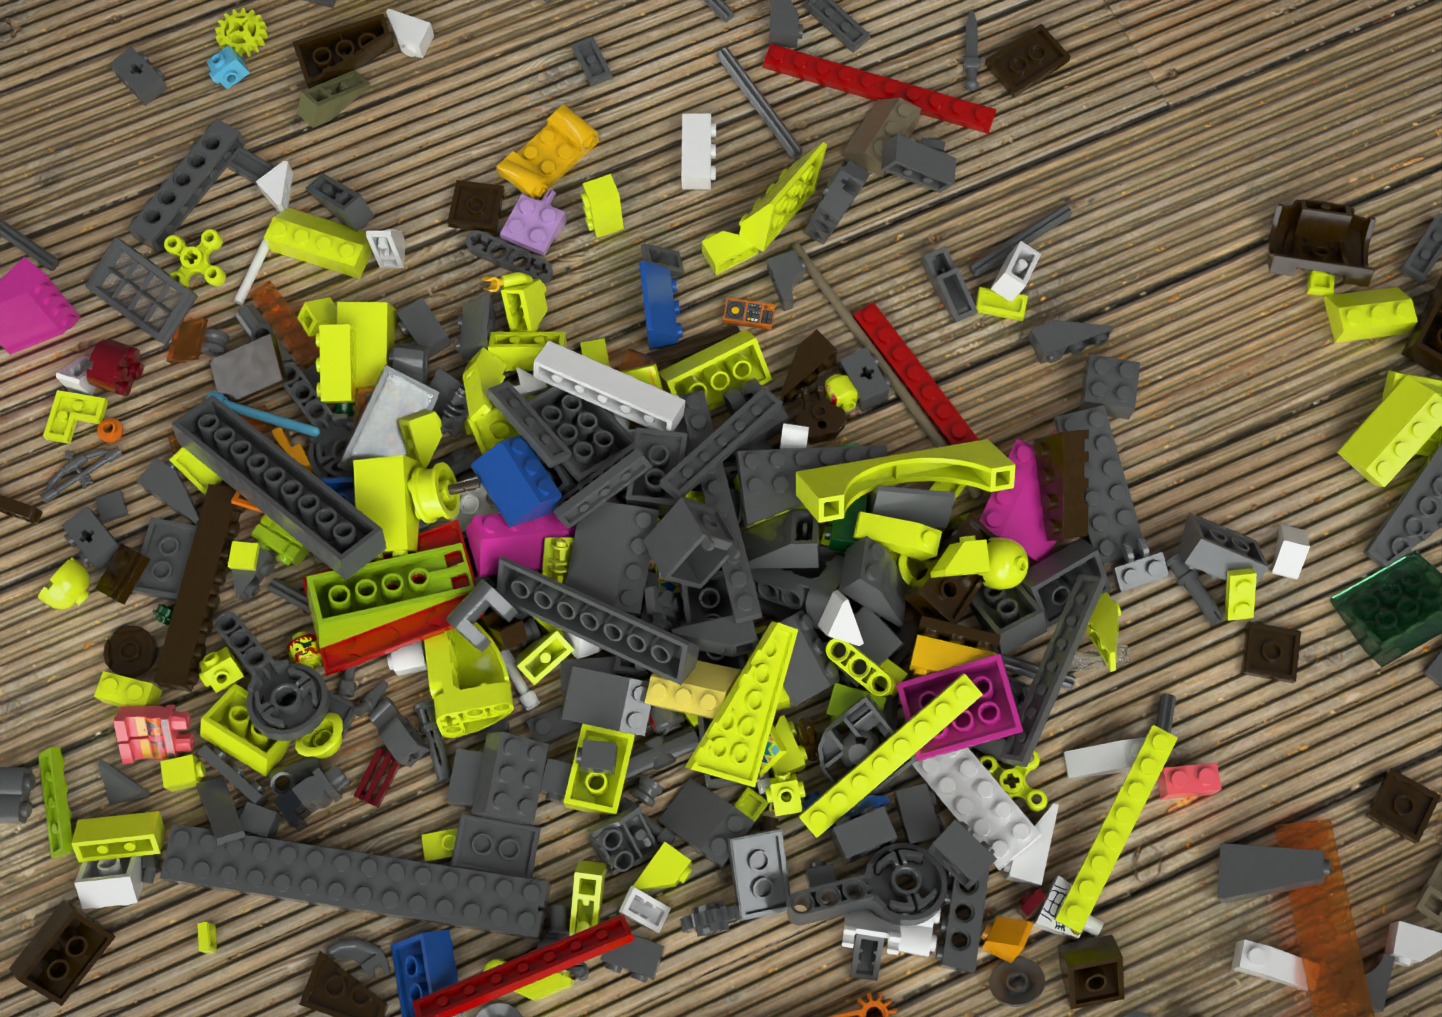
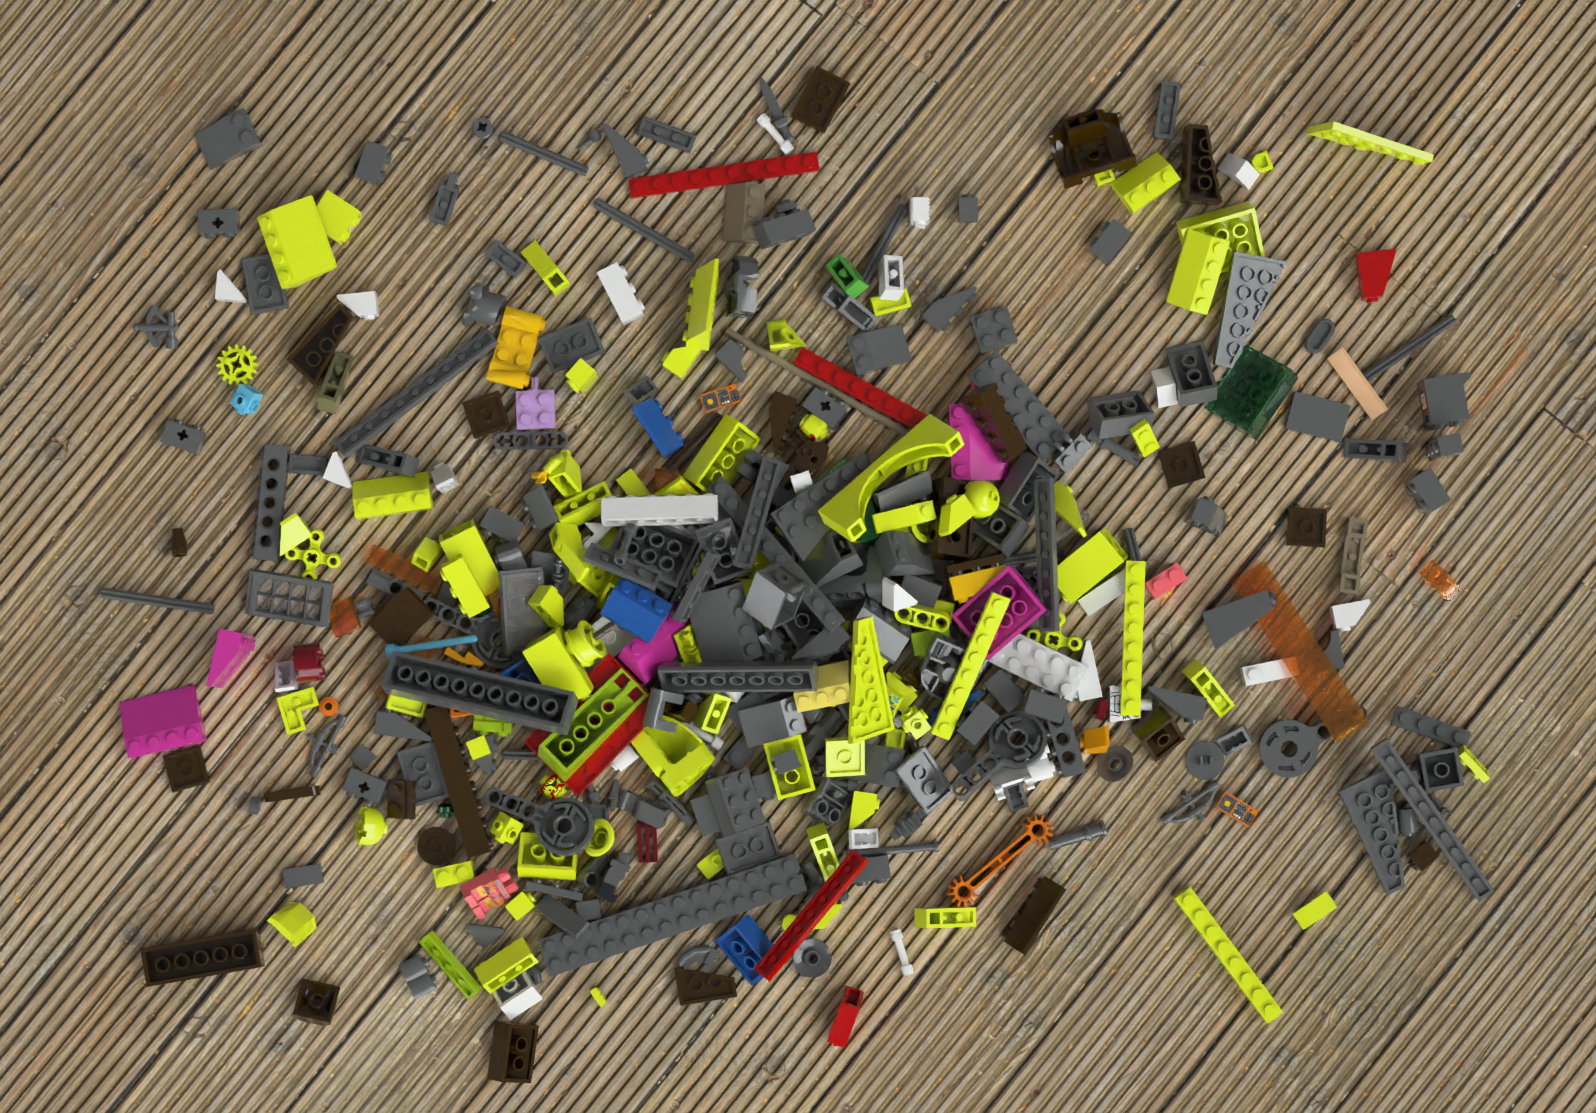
camera: 30 degrees left, 15 degrees up
(61, 181) = (178, 543): none -> dark brown cone
(186, 217) = (293, 532): none -> neon yellow slope
(252, 273) = (355, 534): white bar -> none
(412, 148) = (416, 393): none -> dark grey plate
(533, 408) = (621, 555): none -> dark grey bar
(536, 90) = (483, 306): none -> dark grey piece
(628, 173) = (570, 344): none -> dark grey plate
(629, 91) = (545, 268): none -> neon yellow slope
(674, 790) = (844, 758): none -> neon yellow plate
(683, 949) = (896, 849): none -> dark grey bar
(855, 283) = (782, 336): none -> neon yellow slope
(953, 56) = (785, 146): none -> white bar
(960, 345) = (878, 349): none -> dark grey slope
(965, 245) = (847, 275): none -> bright green brick
(1084, 217) = (919, 212): none -> white brick
(1099, 713) = (1089, 565): none -> neon yellow slope
(1141, 946) = (1182, 704): none -> dark grey slope
(1142, 245) = (968, 209): none -> dark grey brick
(1185, 945) = (1208, 687): none -> neon yellow slope
(1281, 724) = (1207, 516): none -> dark grey wedge
(1297, 355) = (1110, 241): none -> dark grey brick
(1334, 551) = (1192, 373): none -> dark grey slope

